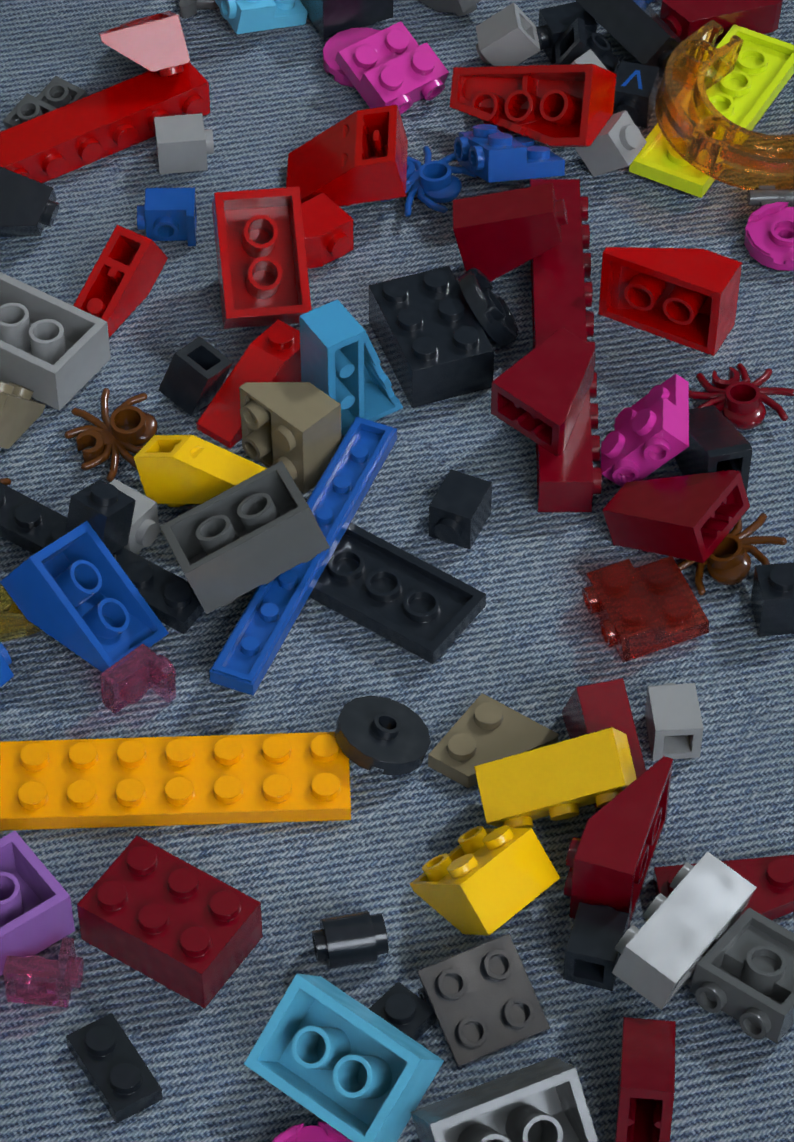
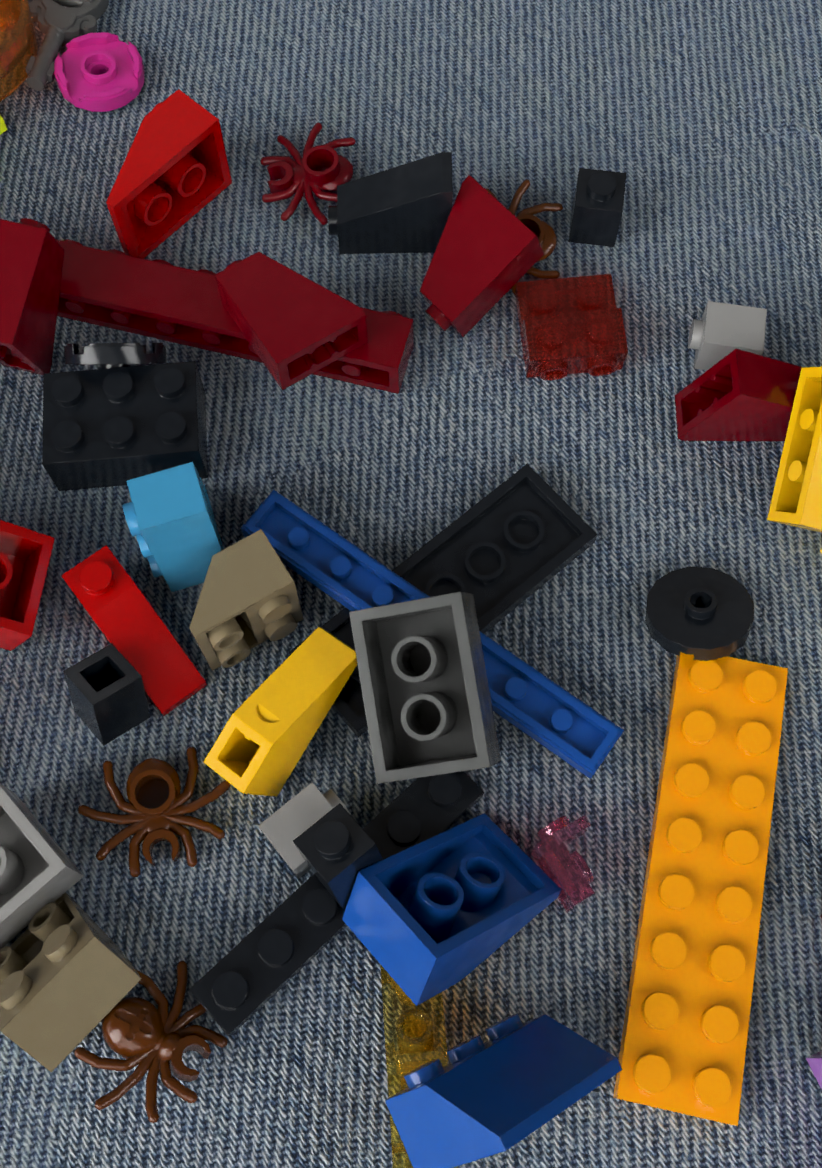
camera: 75 degrees left, 20 degrees up
(460, 509) = (395, 460): black brick -> none
(485, 735) = (711, 514): dark tan wing -> none
(648, 433) = (357, 249): dark pink plate -> none

